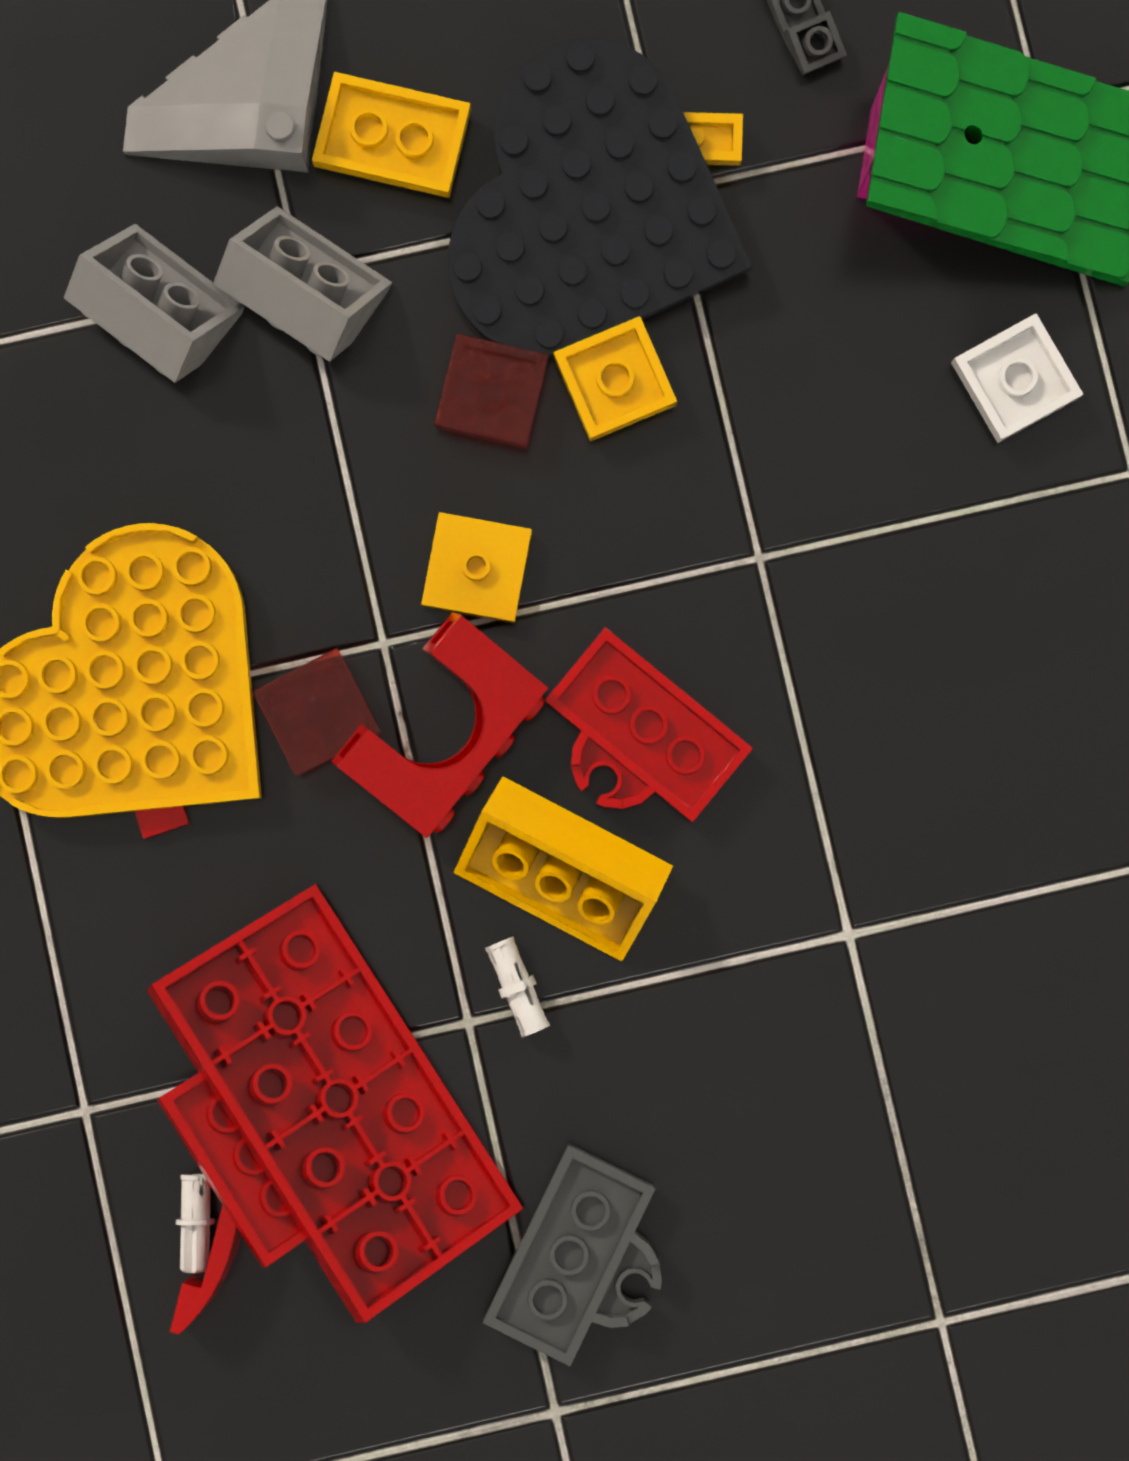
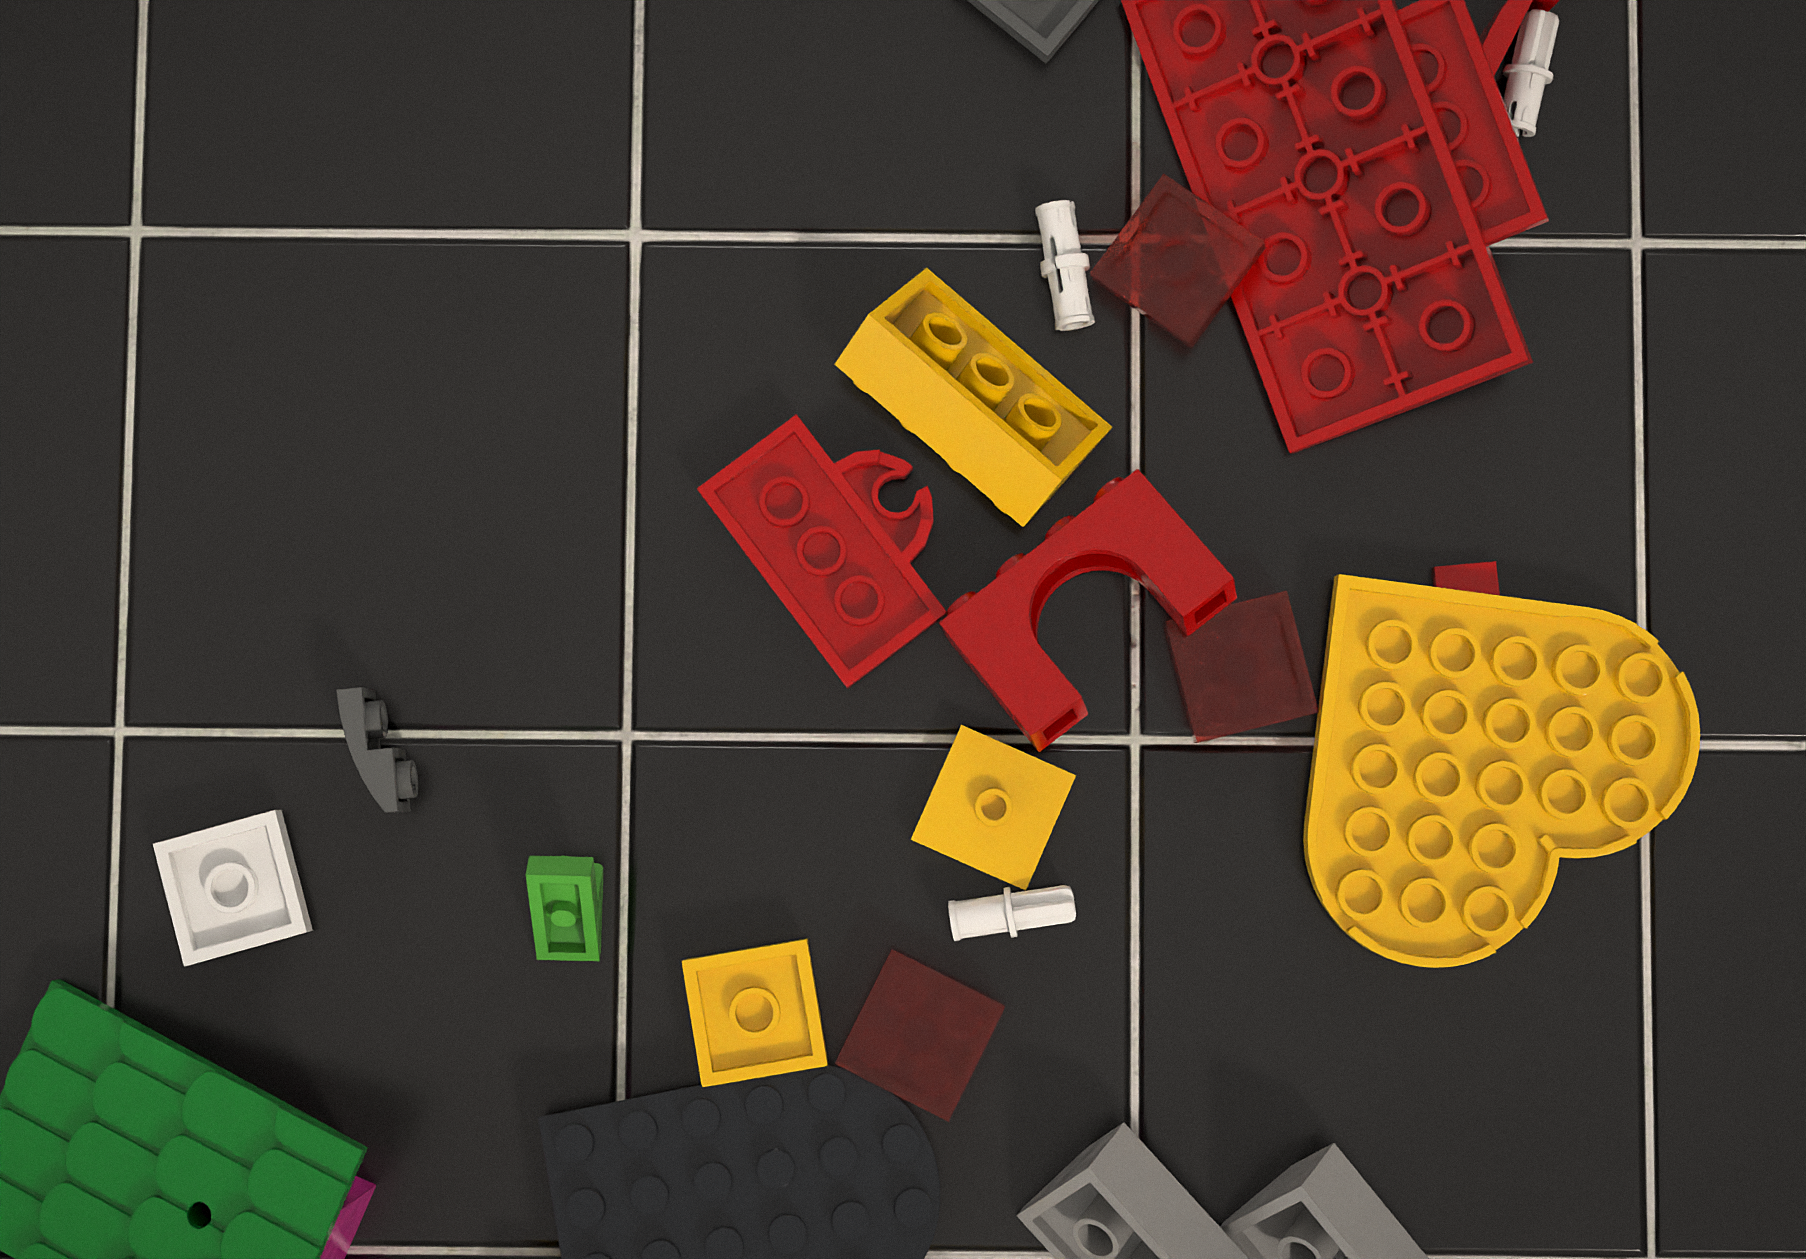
camera: 165 degrees left, 0 degrees up
(432, 1008) = (1177, 260): none -> clear red plate
(445, 494) = (1011, 911): none -> white axle
(771, 421) = (565, 907): none -> bright green slope
(931, 487) = (384, 771): none -> dark grey slope

